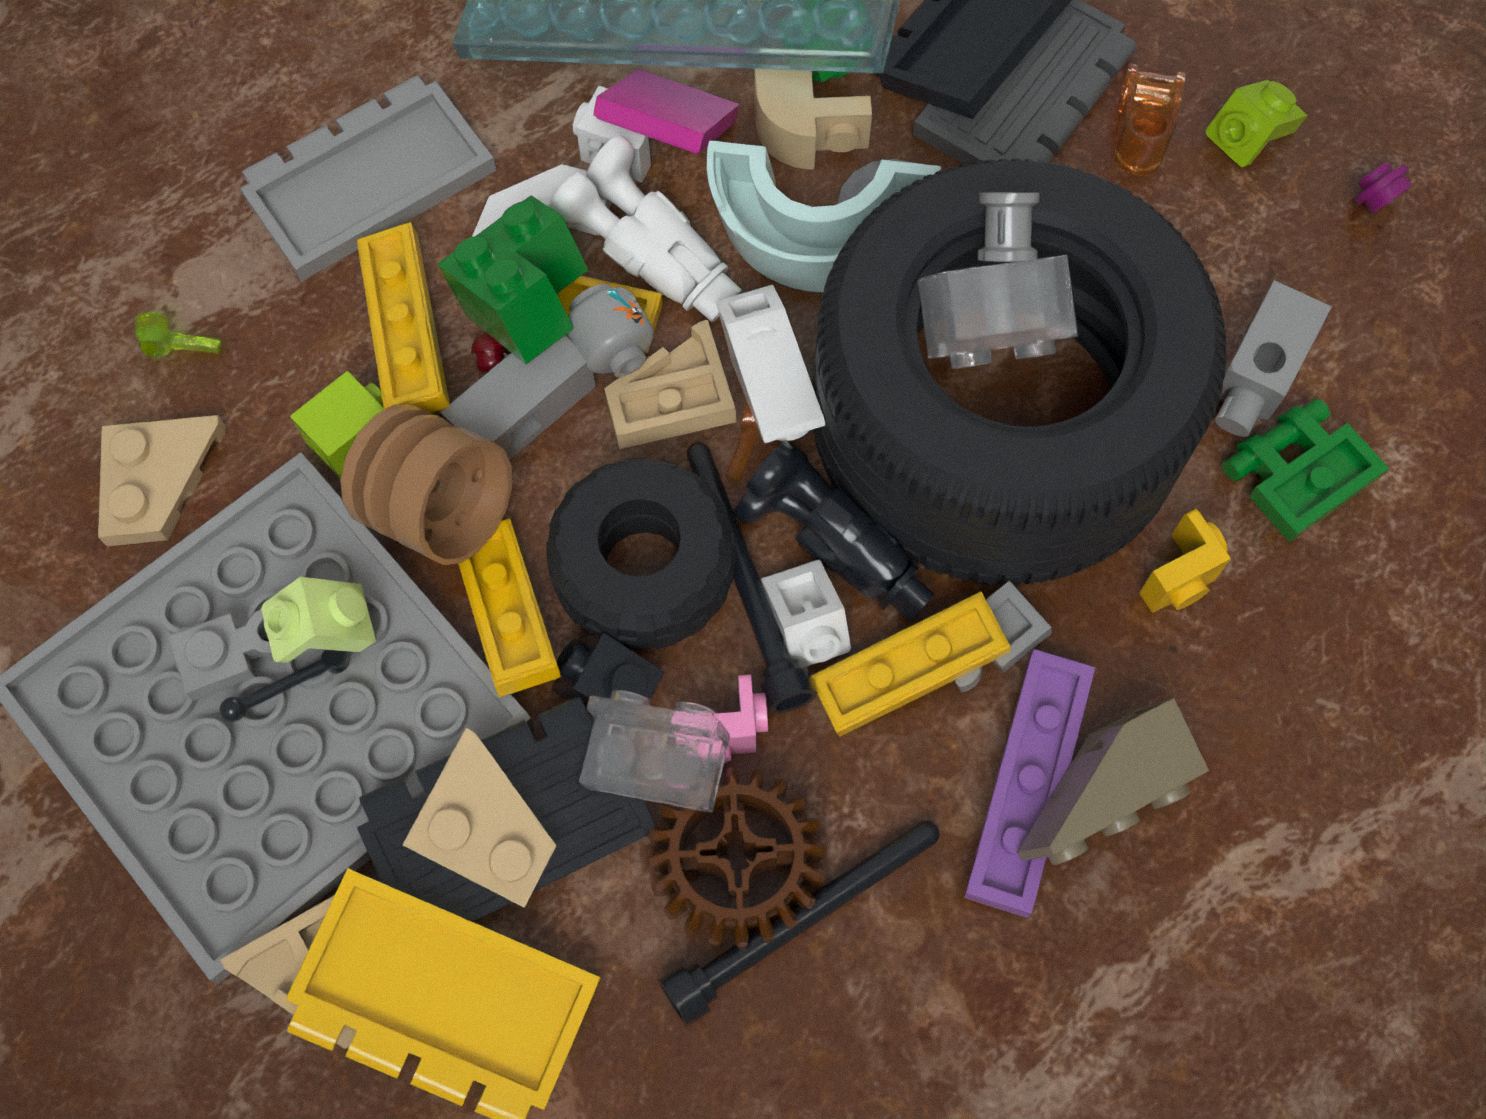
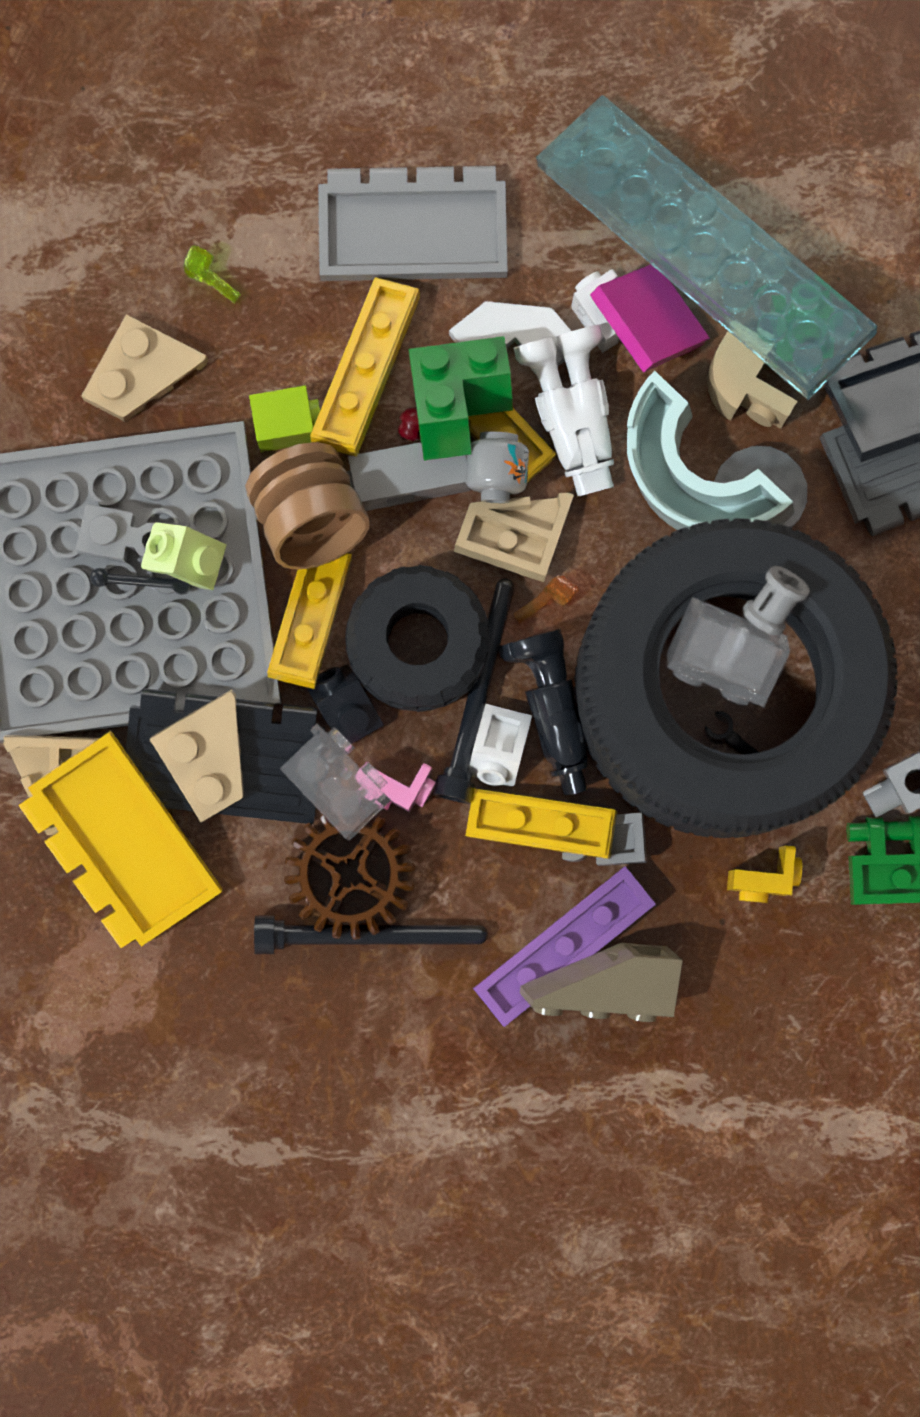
camera: 30 degrees right, 15 degrees up
(769, 365) = (582, 565): white slope -> none

